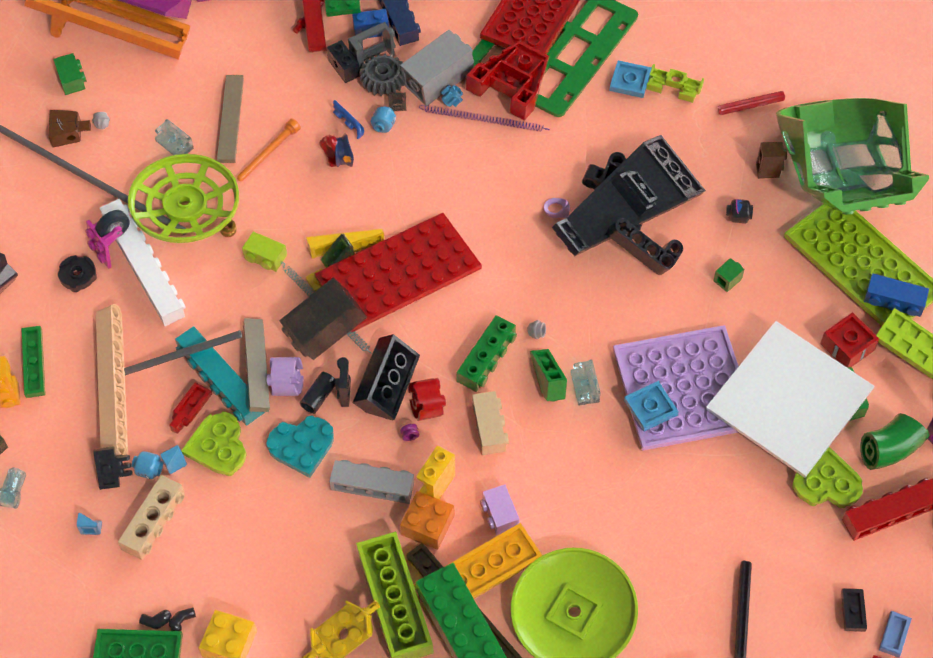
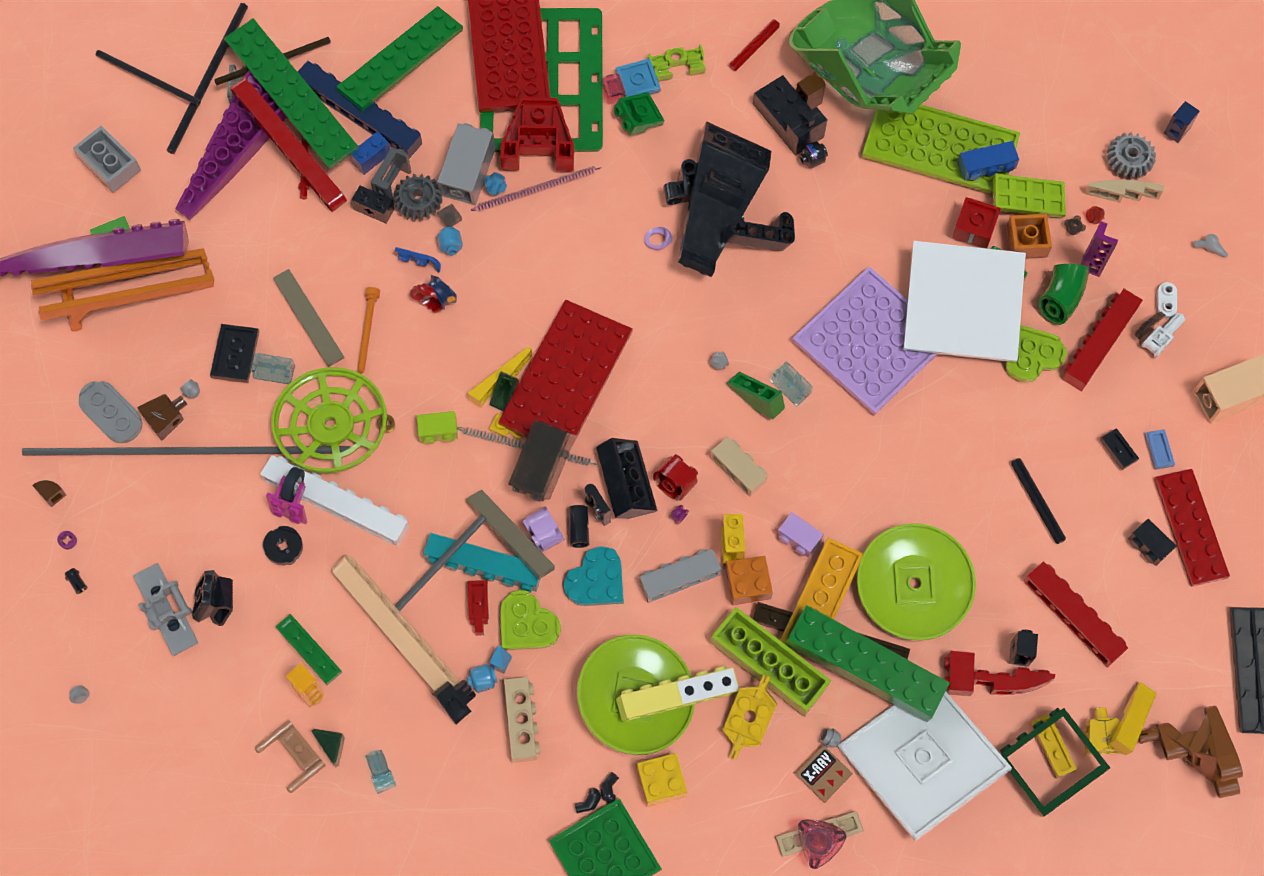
camera: 35 degrees left, 10 degrees up
(31, 105) = (110, 411): none -> light grey tile
(69, 73) = (123, 360): green brick -> none
(87, 526) = (472, 760): dark azure slope -> none
(154, 112) = (234, 353): none -> black plate
(265, 525) = (625, 665): none -> lime dish
(291, 573) = (677, 694): none -> light yellow brick
(486, 353) = (693, 406): green brick -> none
(603, 75) = (613, 88): none -> clear pink brick
(610, 103) = (638, 113): none -> green plate
(651, 406) = (860, 373): dark azure plate -> none
(729, 274) = (842, 218): green brick -> none
(741, 168) = (790, 114): none -> black hinge
(893, 378) = (1029, 235): none -> orange brick

